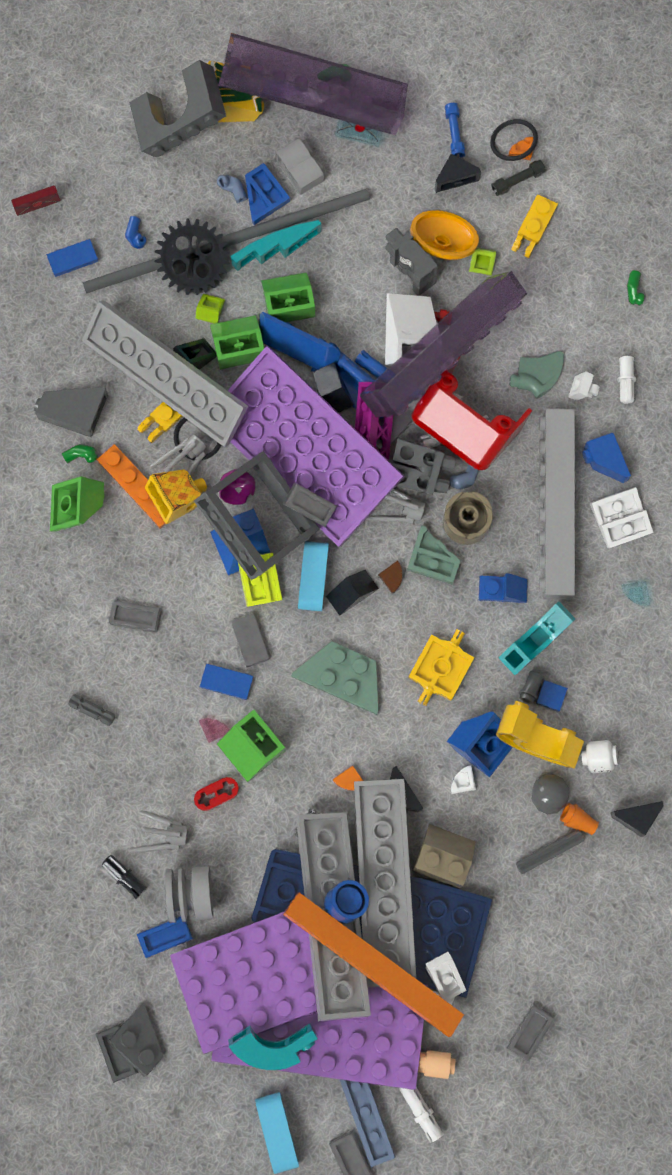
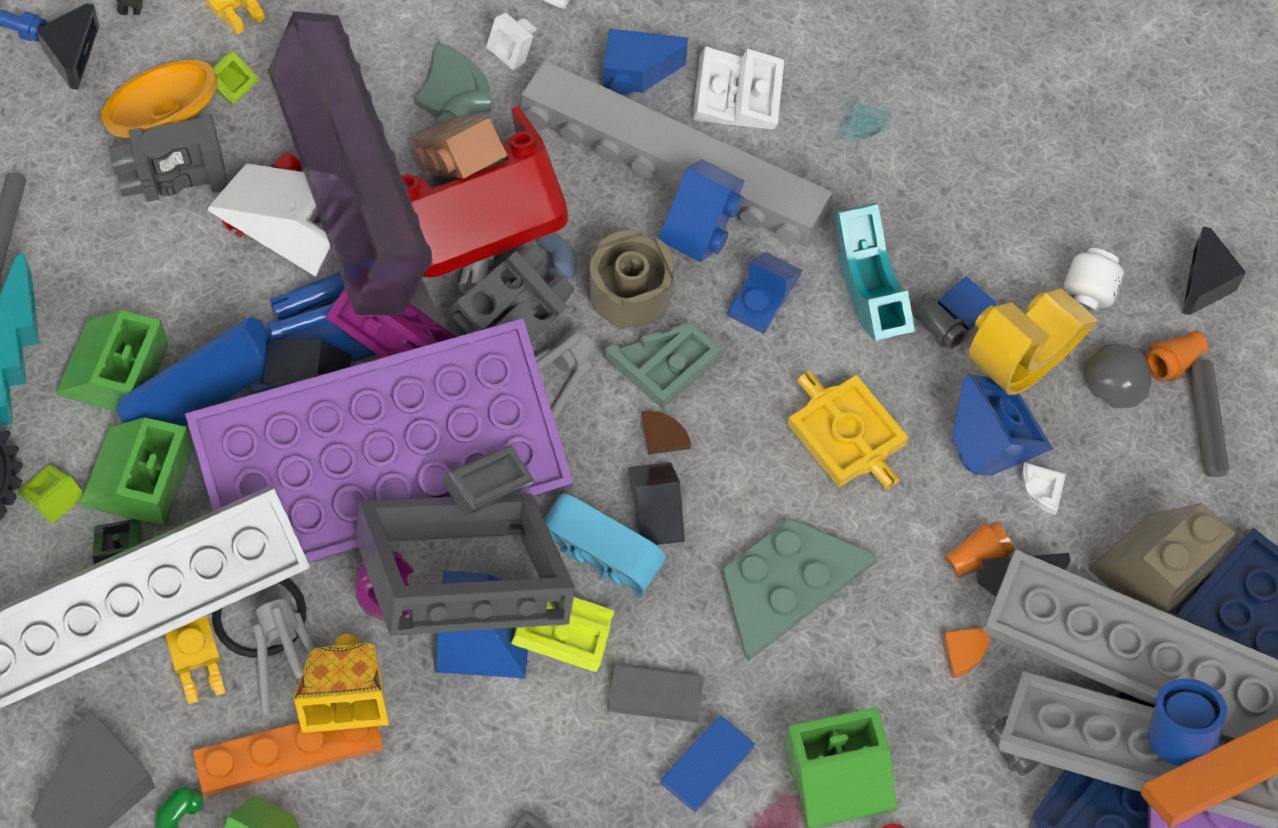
camera: 65 degrees left, 15 degrees down
(407, 763) = (984, 543): none -> orange cone
(489, 393) = (458, 147): none -> nougat brick
(524, 533) = (702, 211): none -> blue brick

